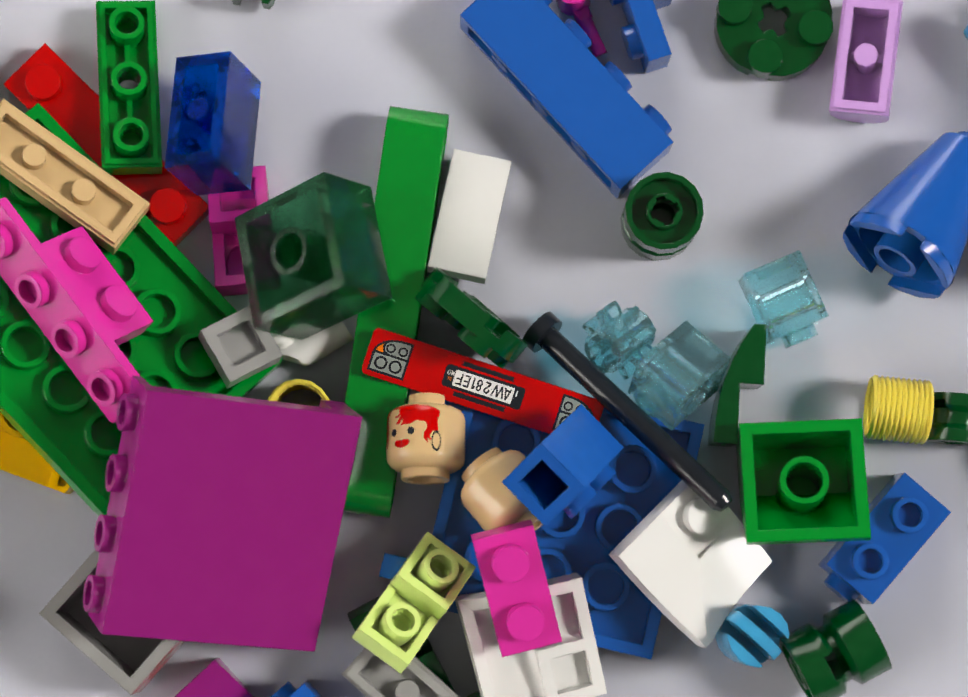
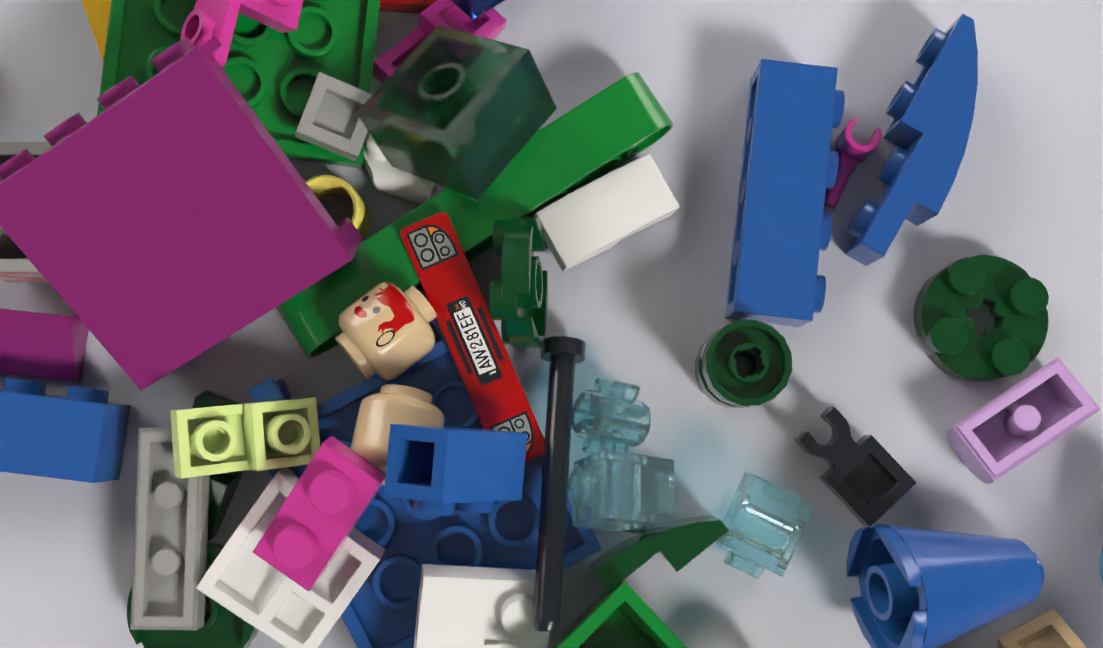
camera: 55 degrees right, 0 degrees up
(808, 200) = (860, 471): none -> black plate

